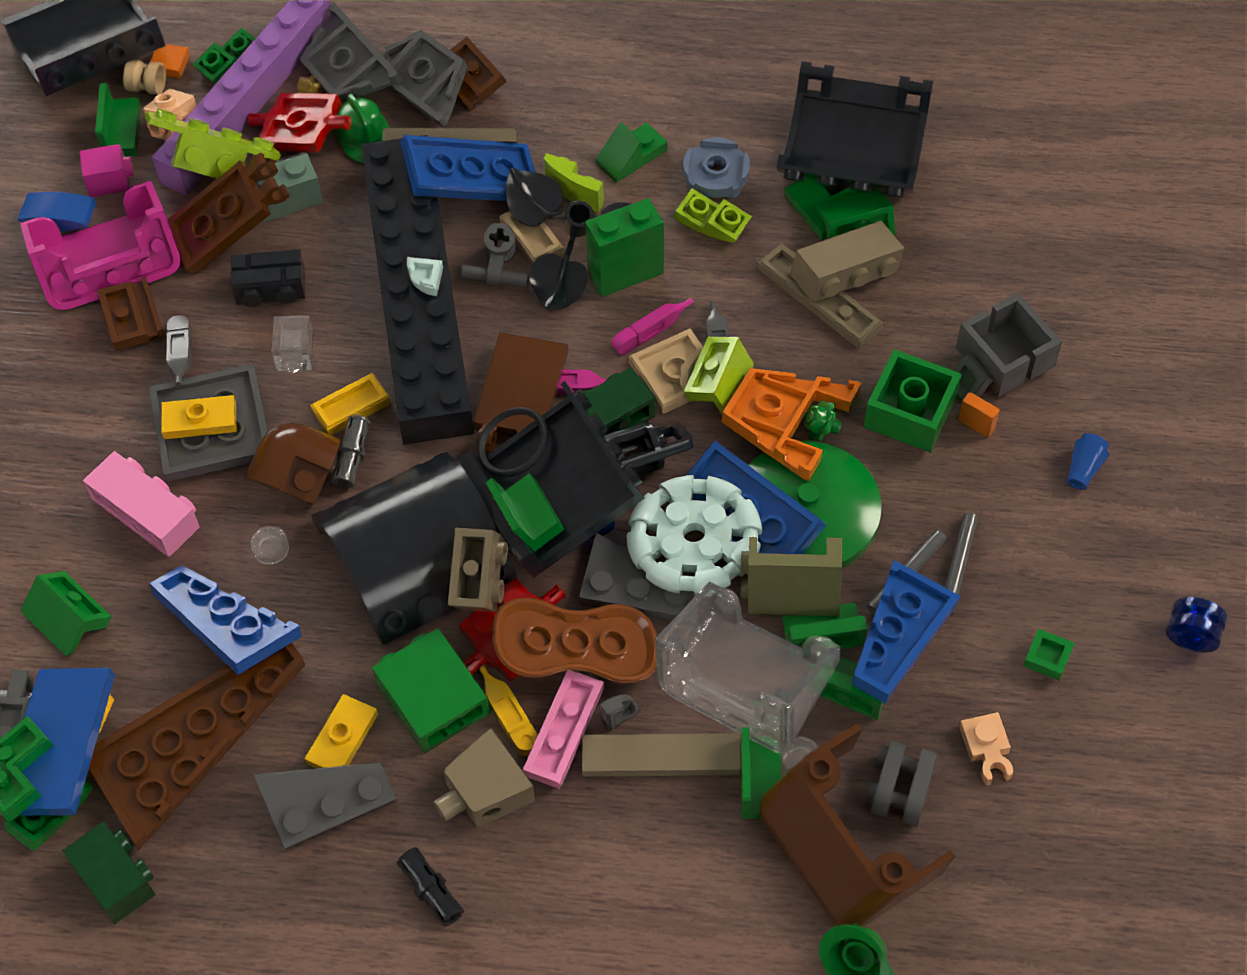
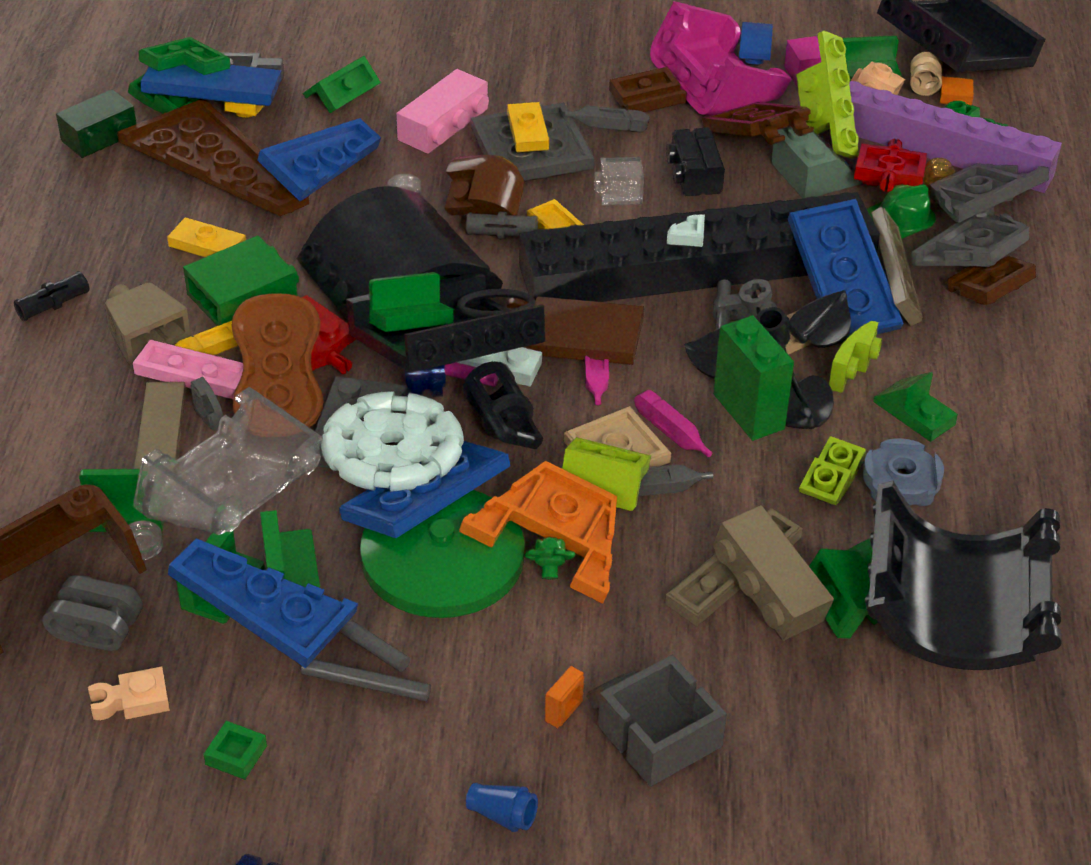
camera: 85 degrees right, 15 degrees down
(322, 798) = (144, 227): dark grey wing -> none
(477, 570) = (337, 272): dark tan brick -> none
(622, 401) = (558, 391): dark green brick -> none
(792, 581) = (331, 524): olive panel -> none
(912, 400) = (573, 625): green brick -> none

